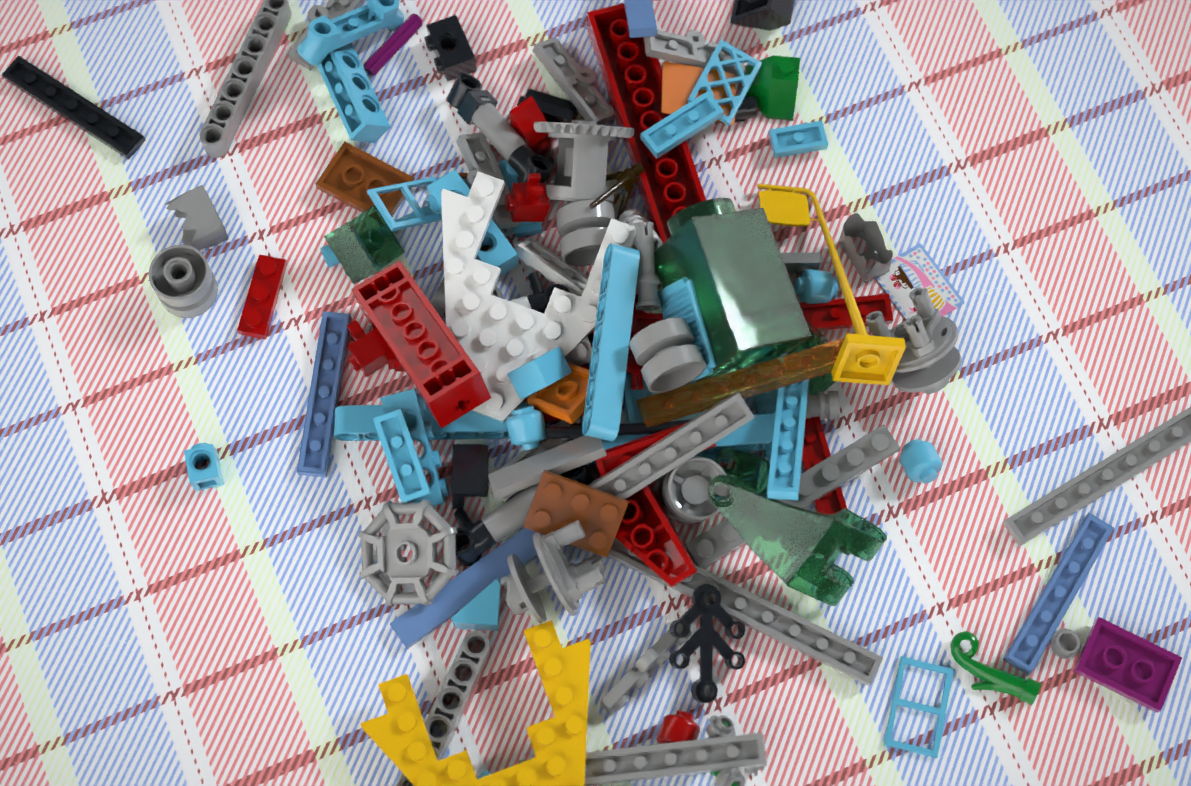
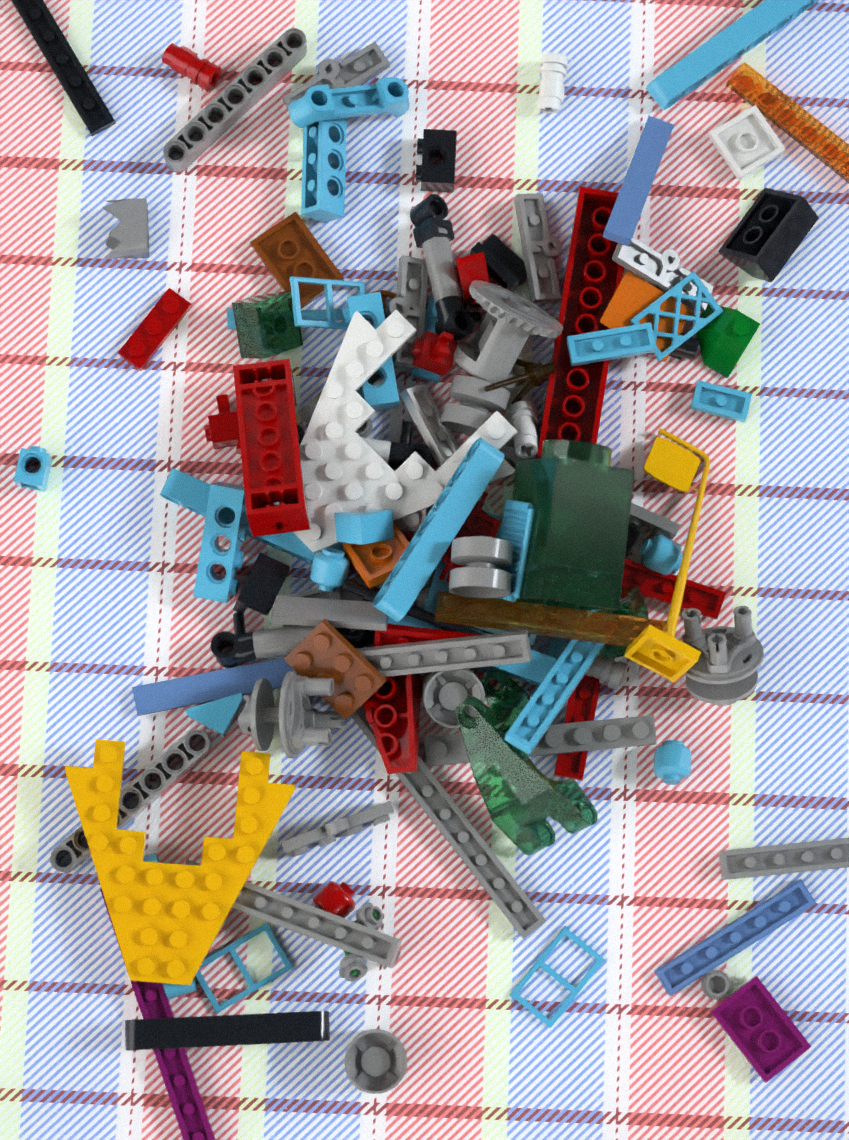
camera: 20 degrees right, 10 degrees up
(183, 281) = (88, 285): light grey wheel -> none
(190, 62) = (189, 65): none -> red axle
(324, 395) = (169, 448): medium blue tile -> none
(393, 44) = (386, 130): magenta axle -> none
(401, 455) = (206, 546): medium azure plate -> none
(424, 550) = (190, 633): light grey plate -> none
(646, 279) = (500, 485): light grey pin -> none
(706, 638) = (399, 831): black plant -> none
(870, 232) = (729, 513): light grey piece -> none
(915, 270) = (765, 589): sticker -> none
(994, 678) = (635, 983): green plant -> none

